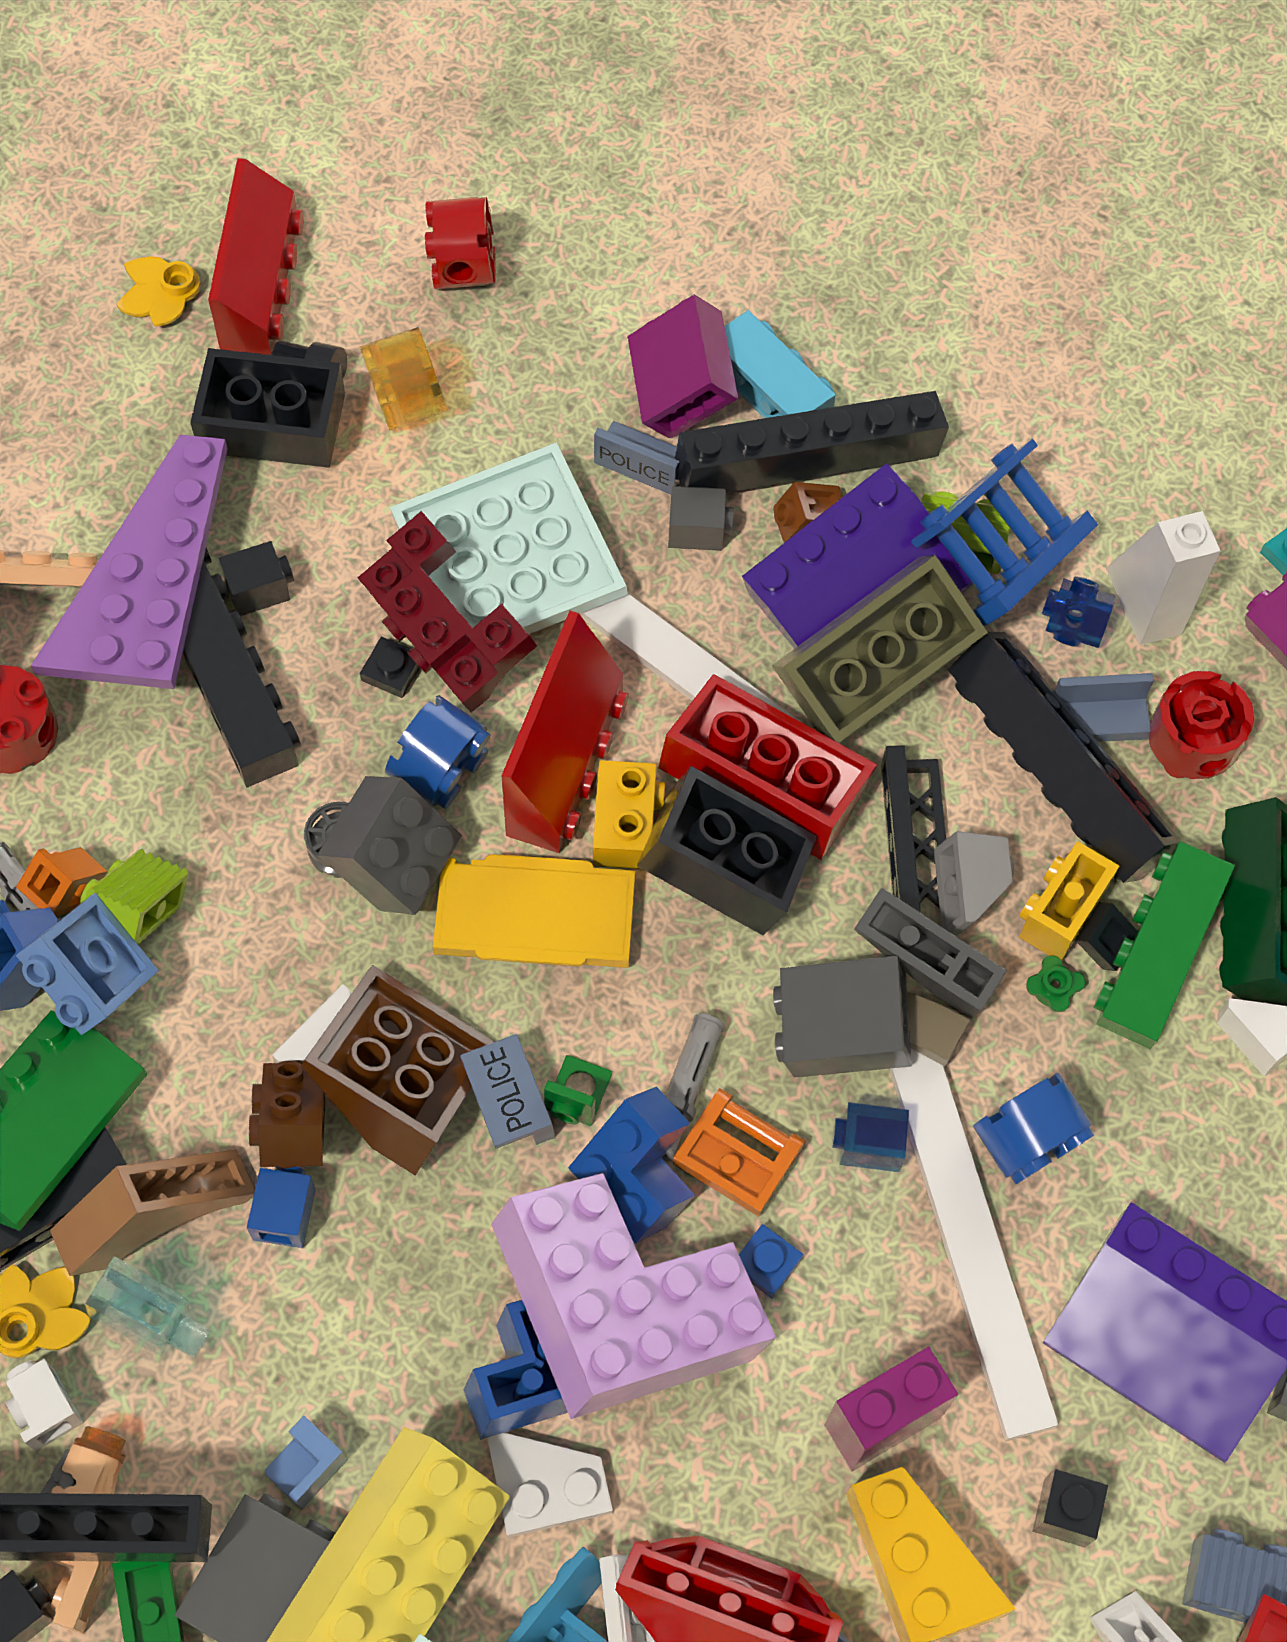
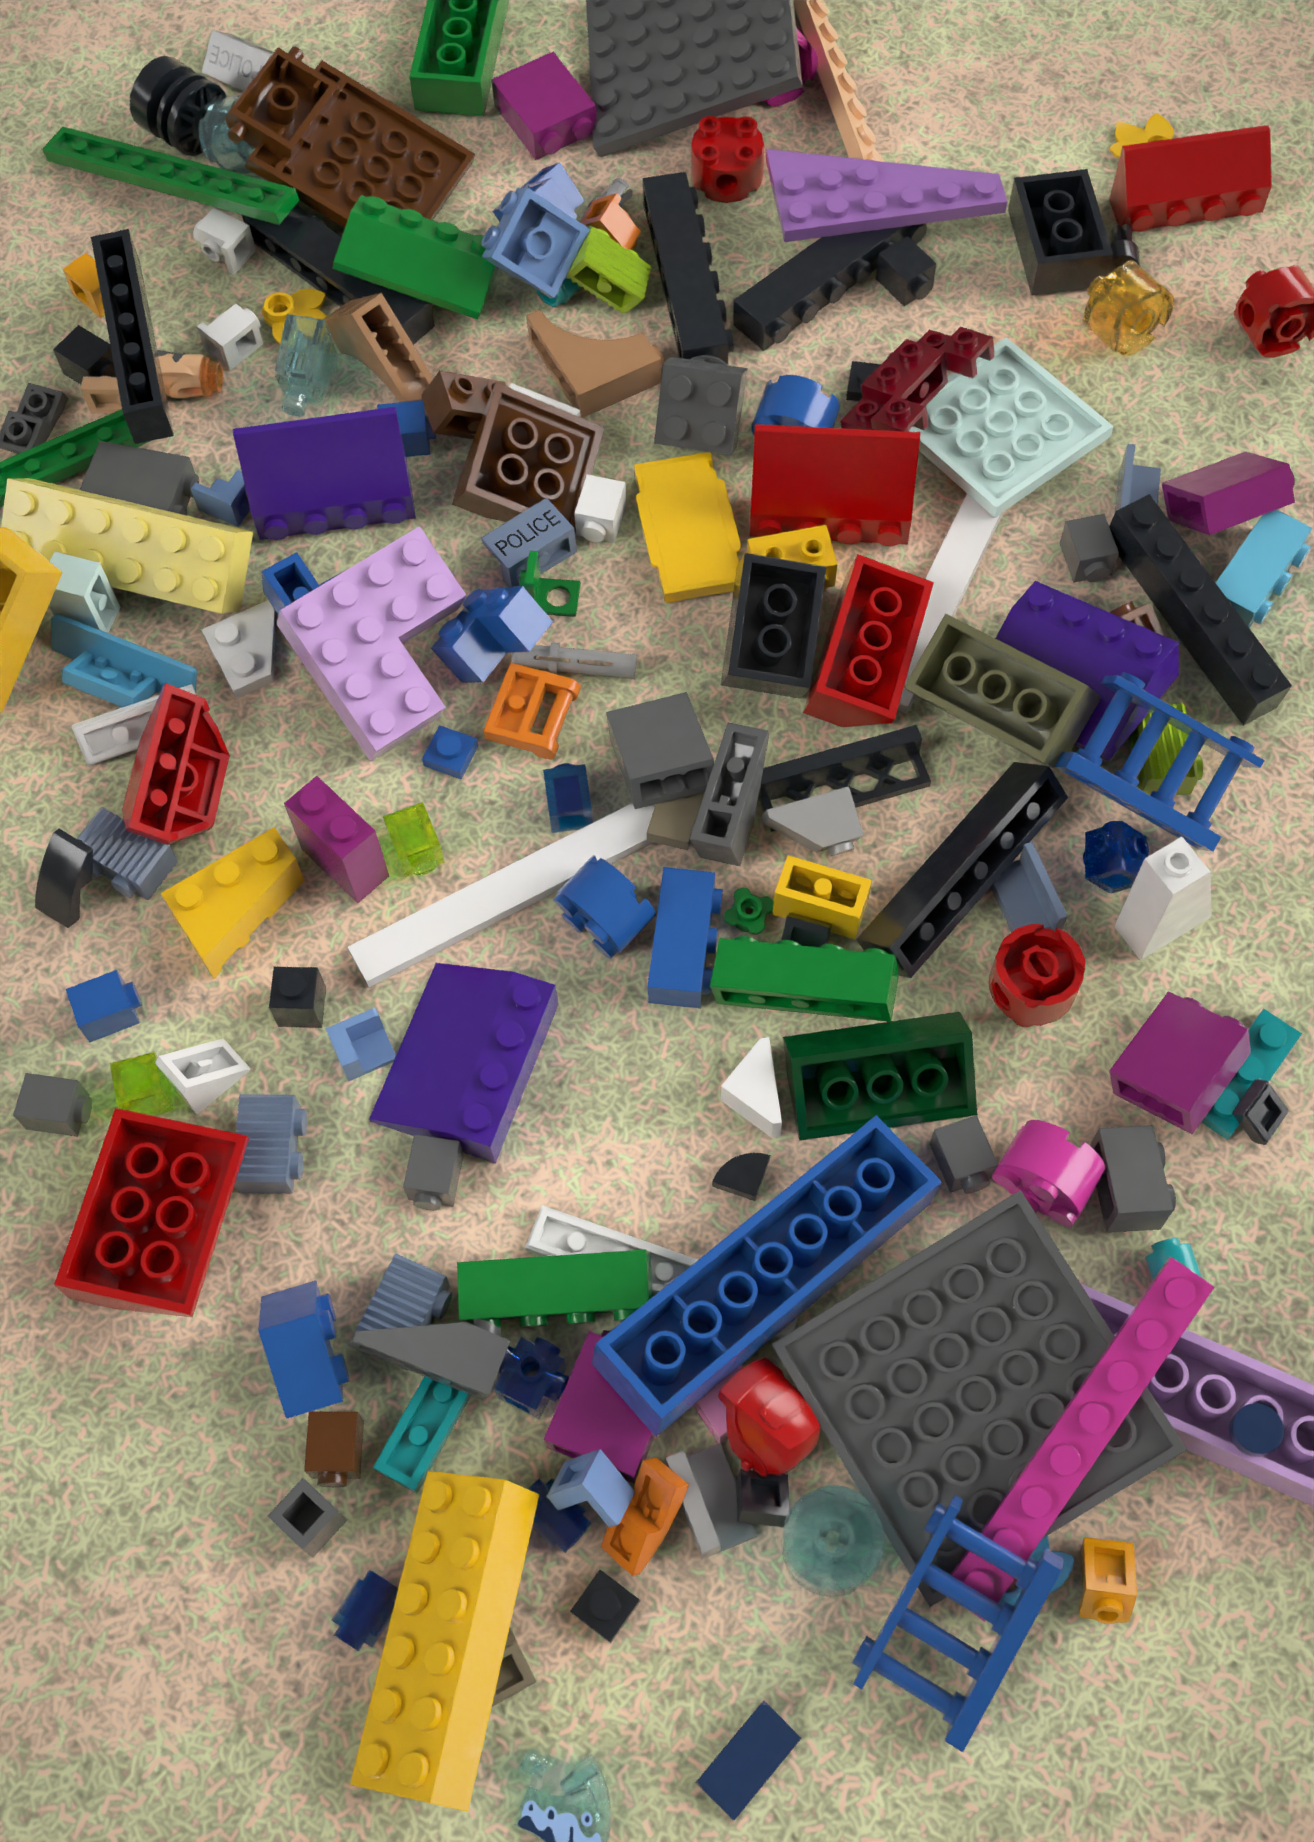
camera: 80 degrees right, 0 degrees up
(158, 814) = (684, 267): none -> black brick
(269, 966) = (594, 370): none -> medium nougat arch
(355, 1314) = (325, 473): none -> dark purple slope
(484, 1001) = (600, 509): none -> white brick
(888, 1326) = (414, 840): none -> clear neon green brick
(1093, 1063) = (684, 938): none -> blue brick
(1139, 1449) = (361, 1044): none -> medium blue panel

